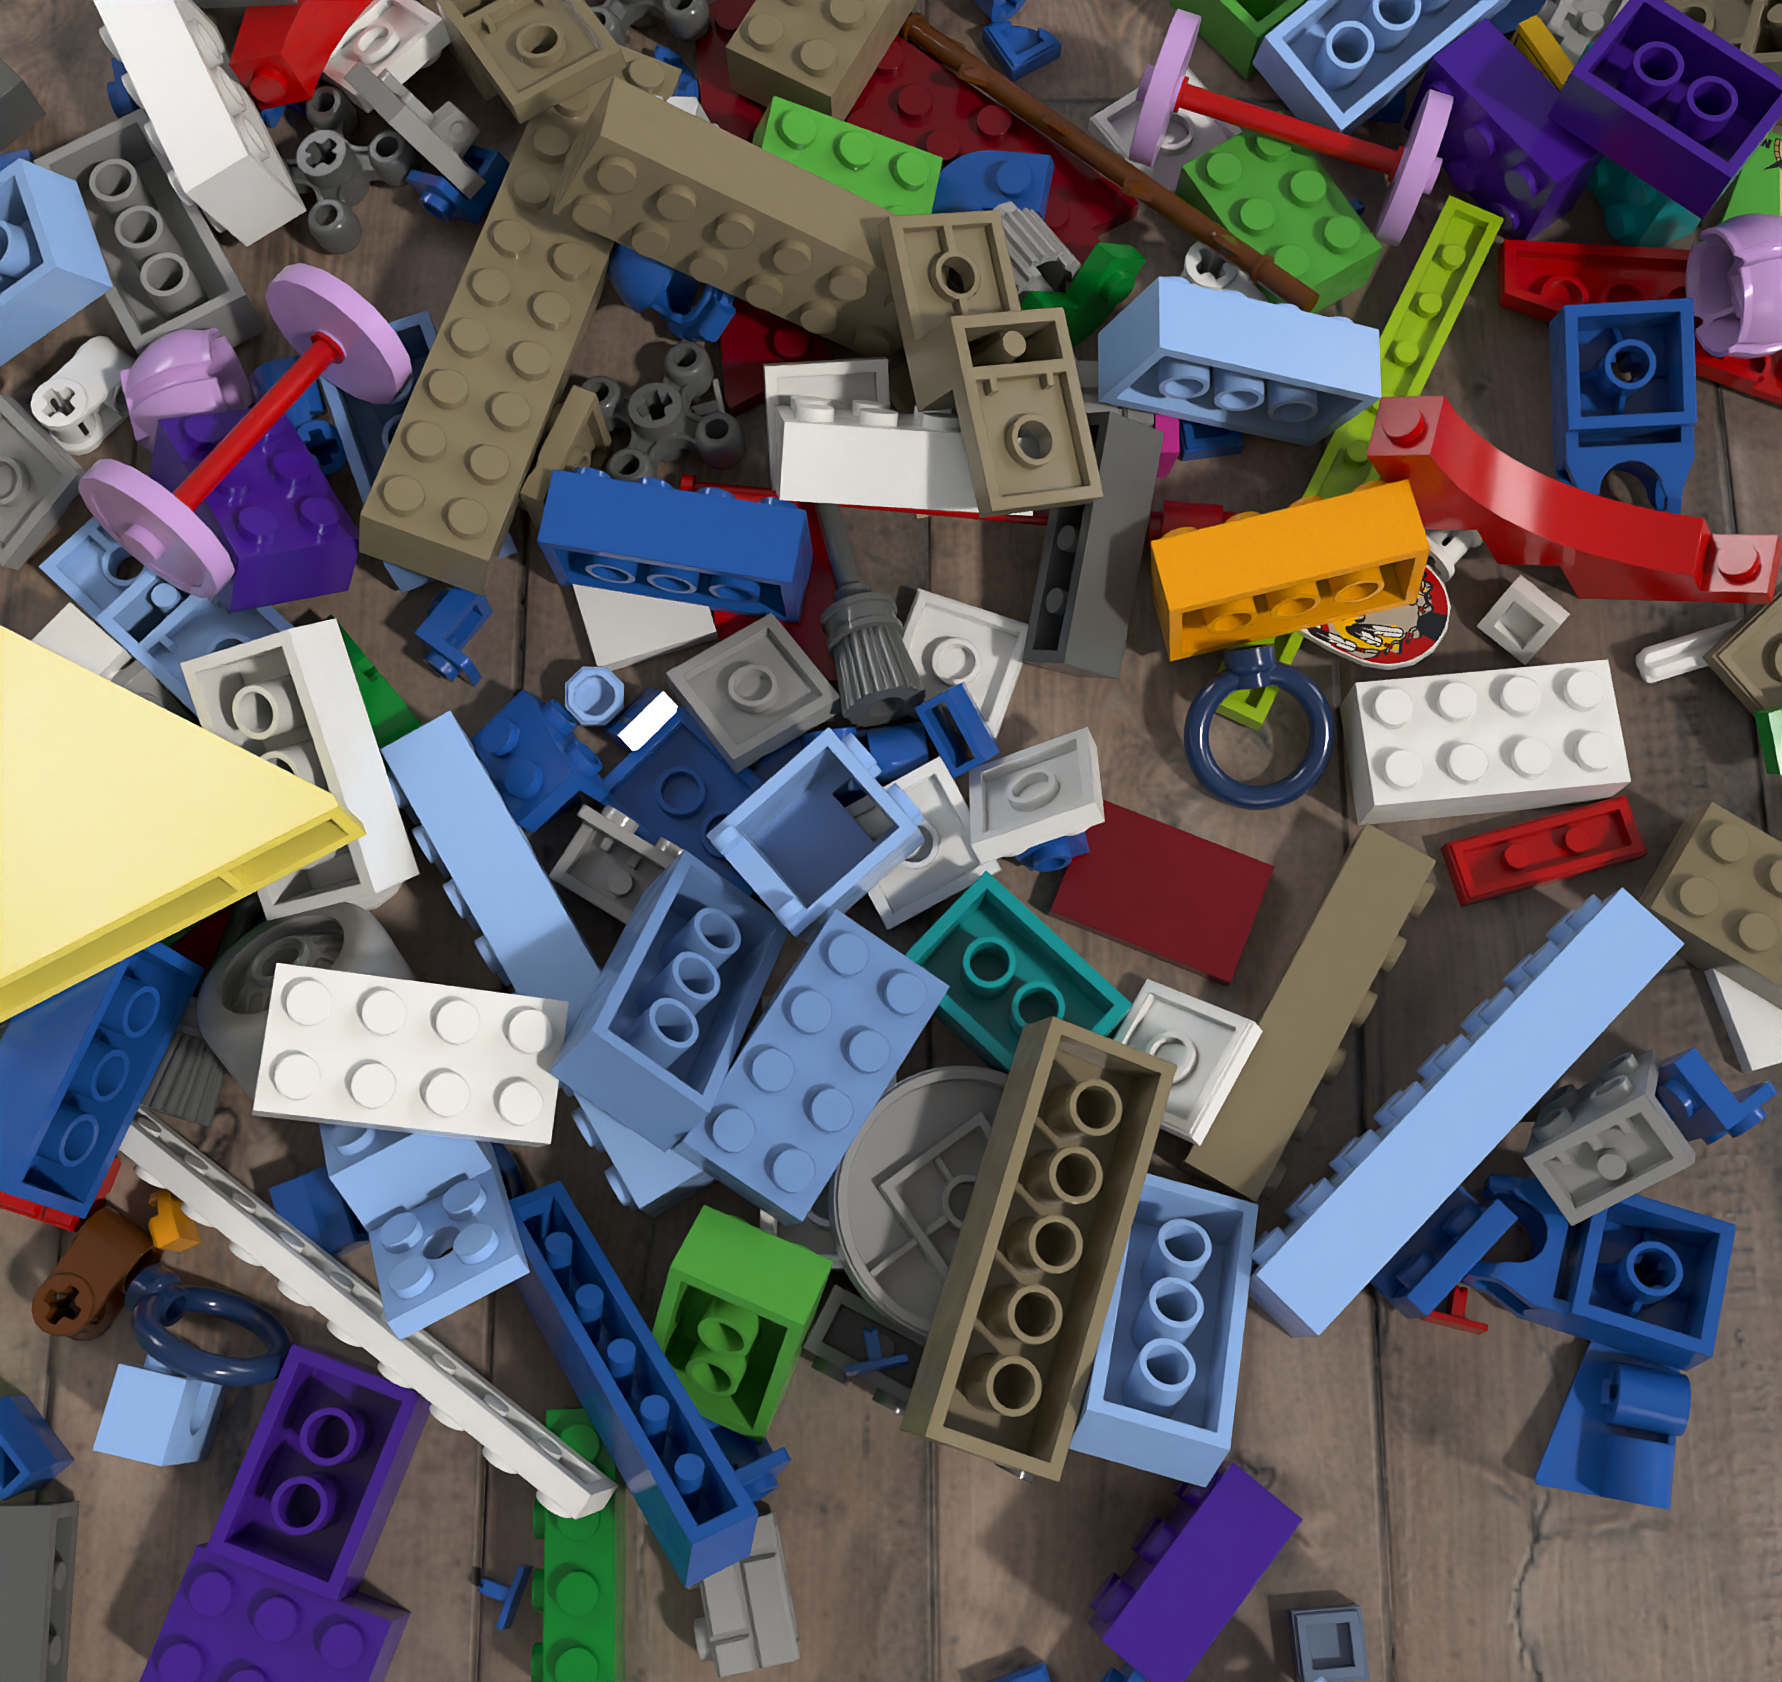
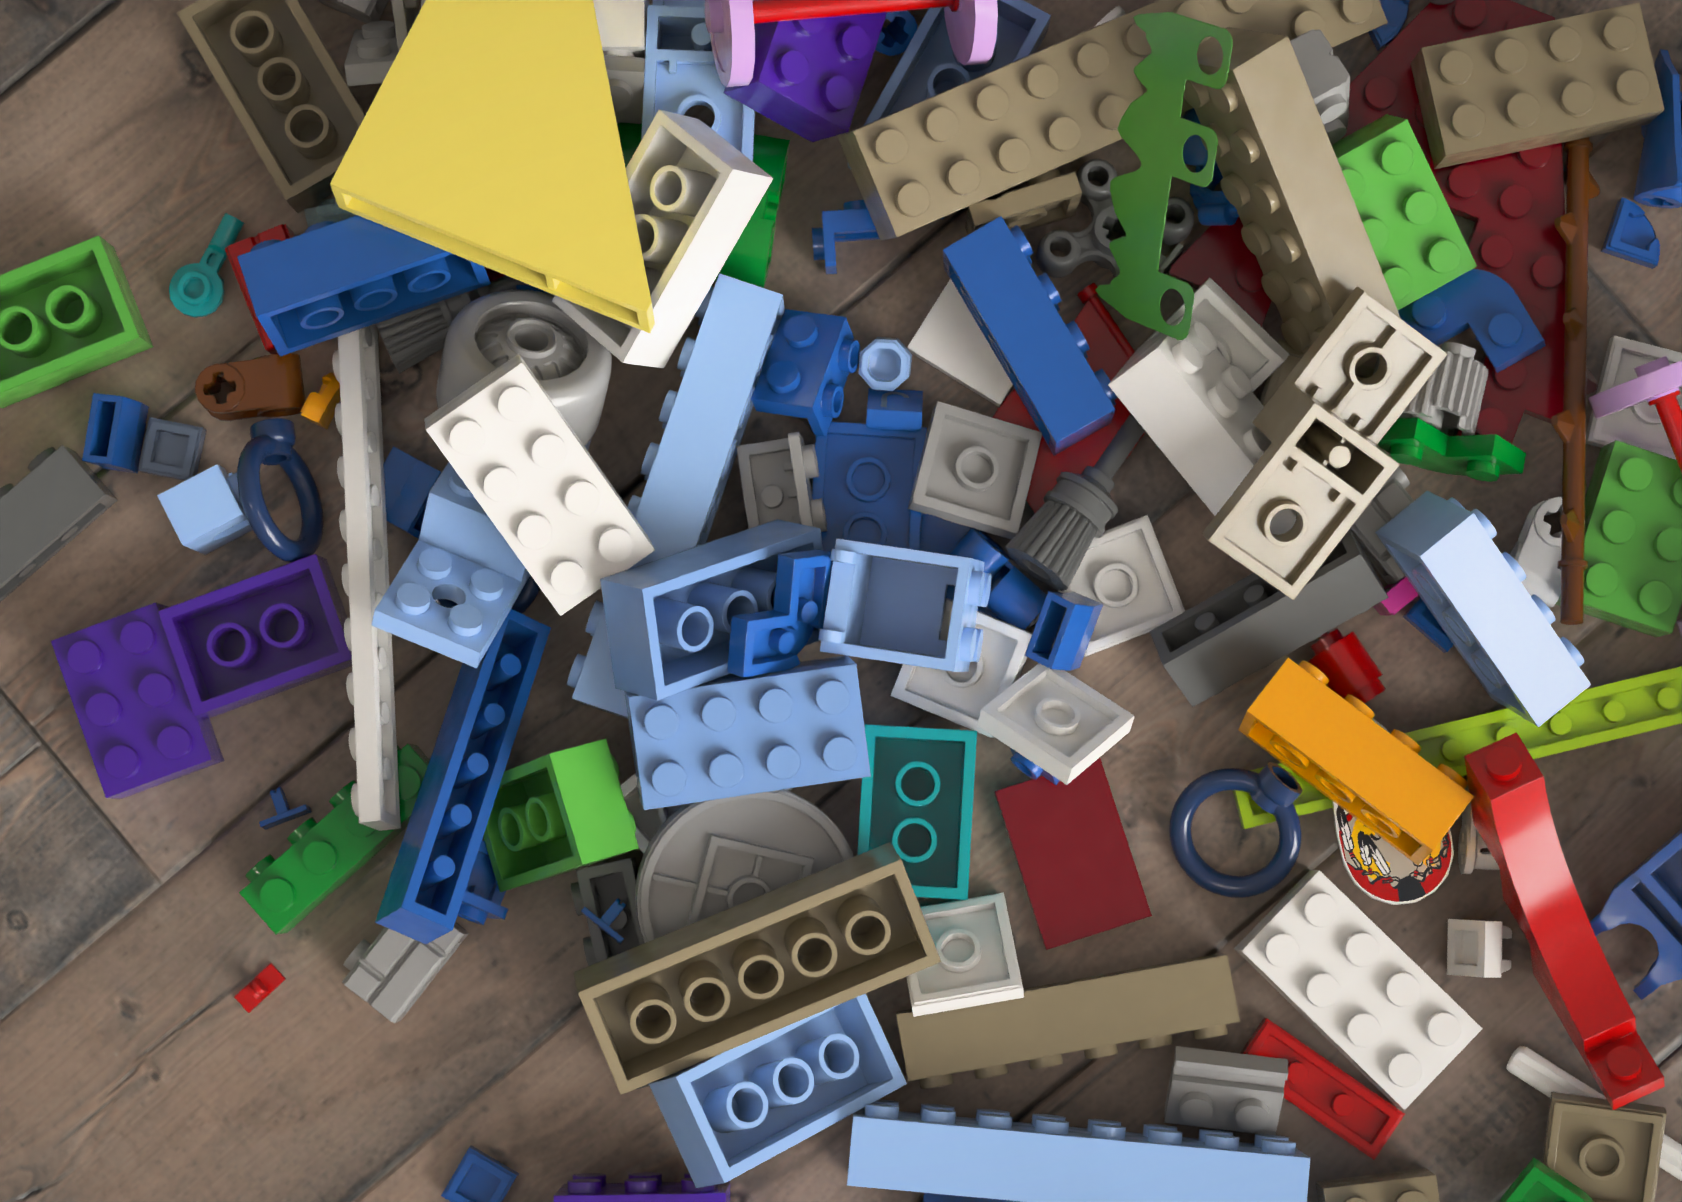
camera: 55 degrees right, 10 degrees up
(76, 1405) = (172, 449): none -> sand blue tile
(603, 278) = (1157, 137): none -> bright green piece
(747, 965) = (773, 638): none -> blue plate
(1486, 928) = (1225, 1090): none -> light grey plate

